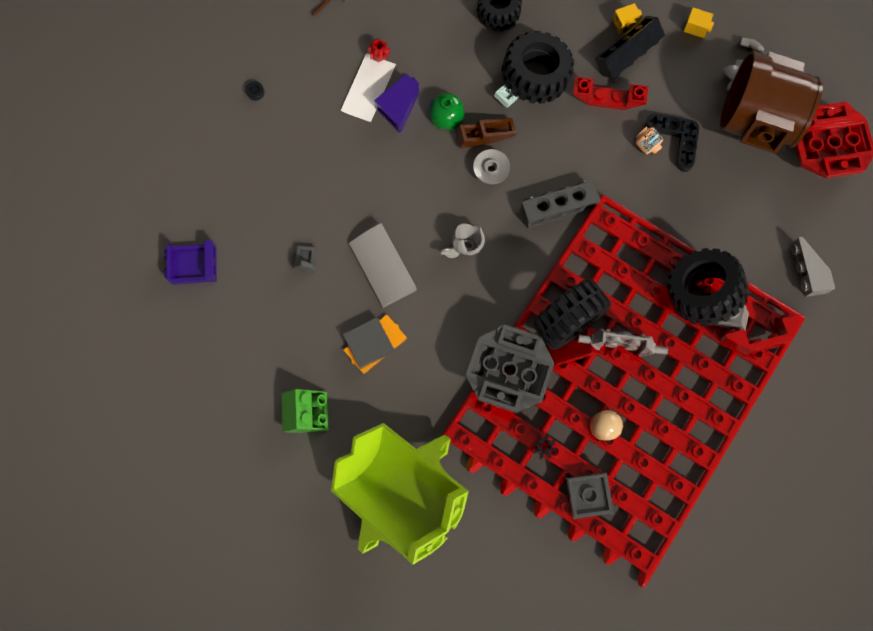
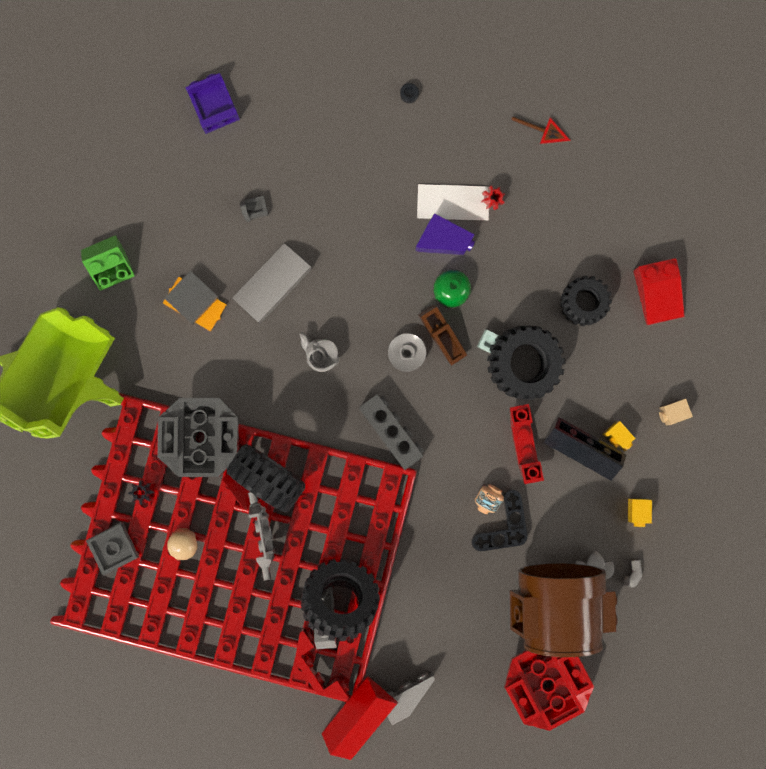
camera: 70 degrees right, 10 degrees up
(821, 318) = (358, 719): none -> red slope

